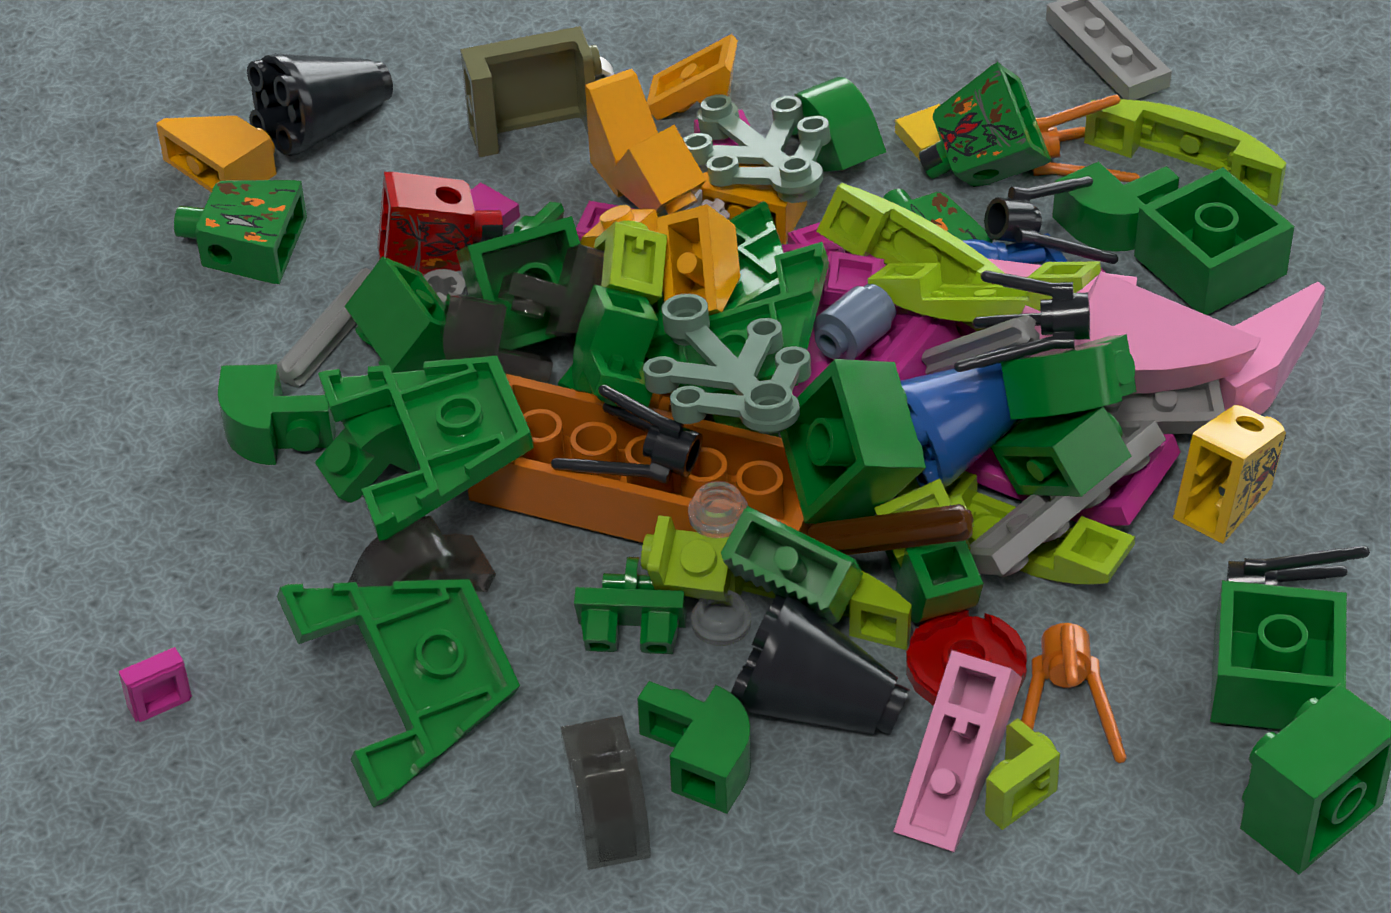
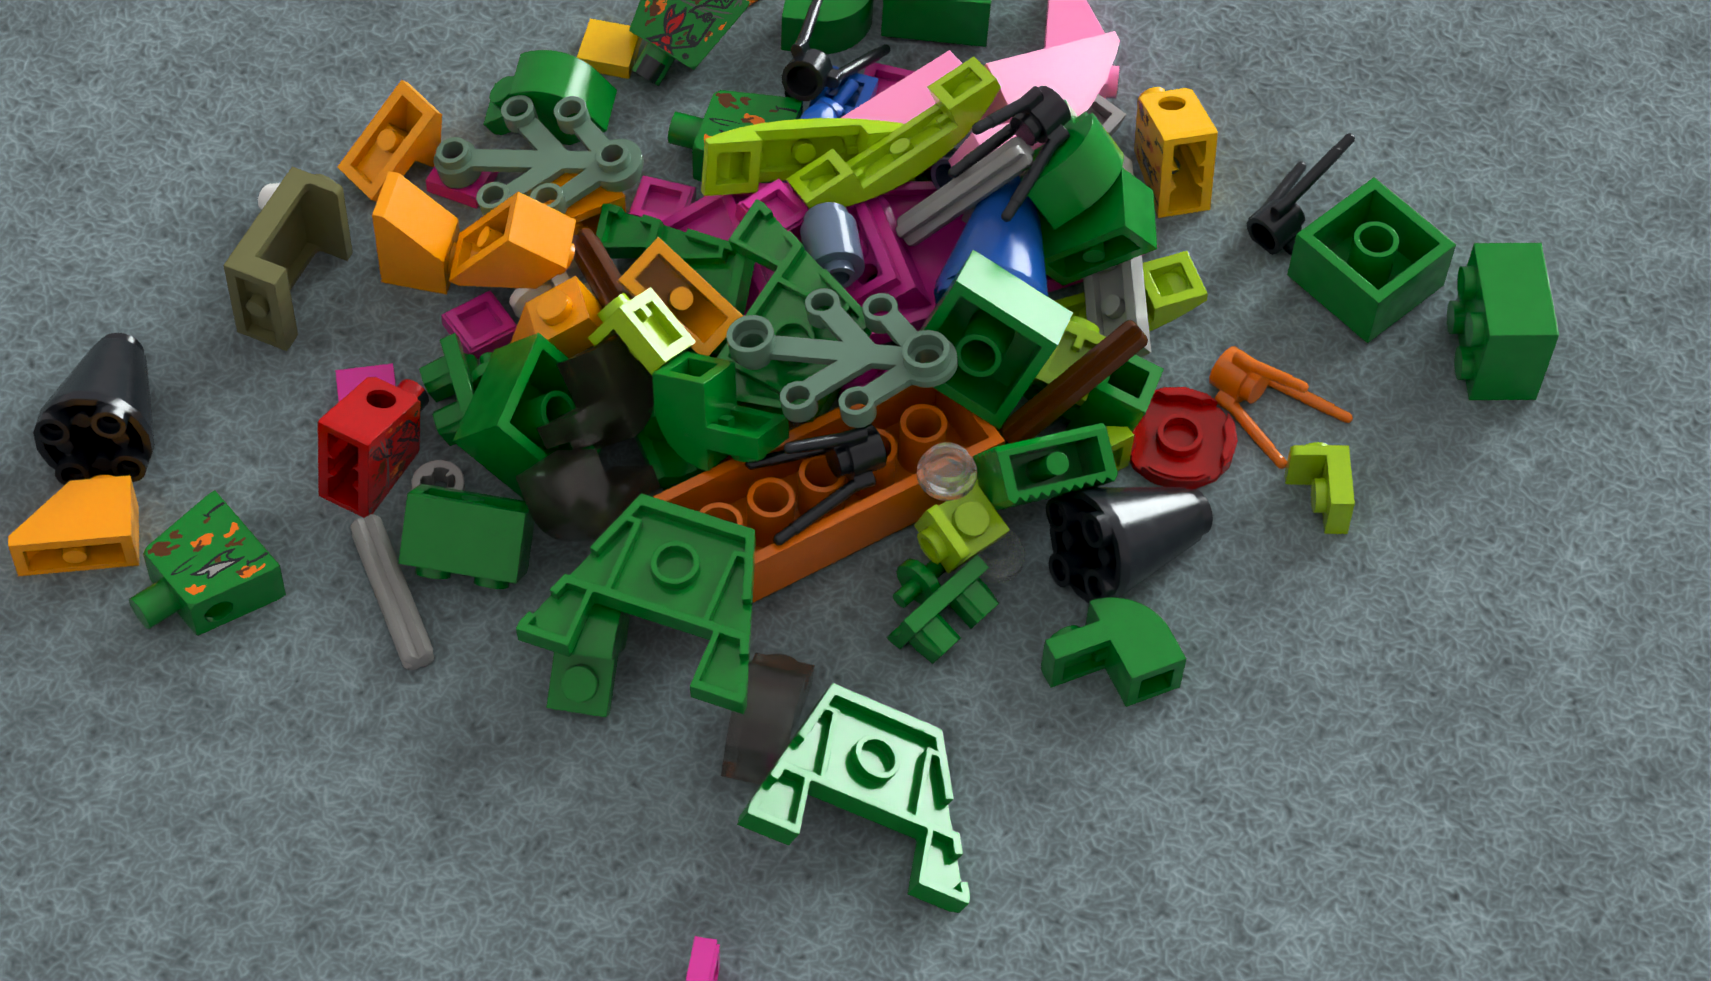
camera: 55 degrees left, 10 degrees up
(263, 420) = (459, 715): green brick -> none
(606, 792) = (1128, 740): clear smoke brick -> none
(957, 749) = (1275, 500): bright pink slope -> none

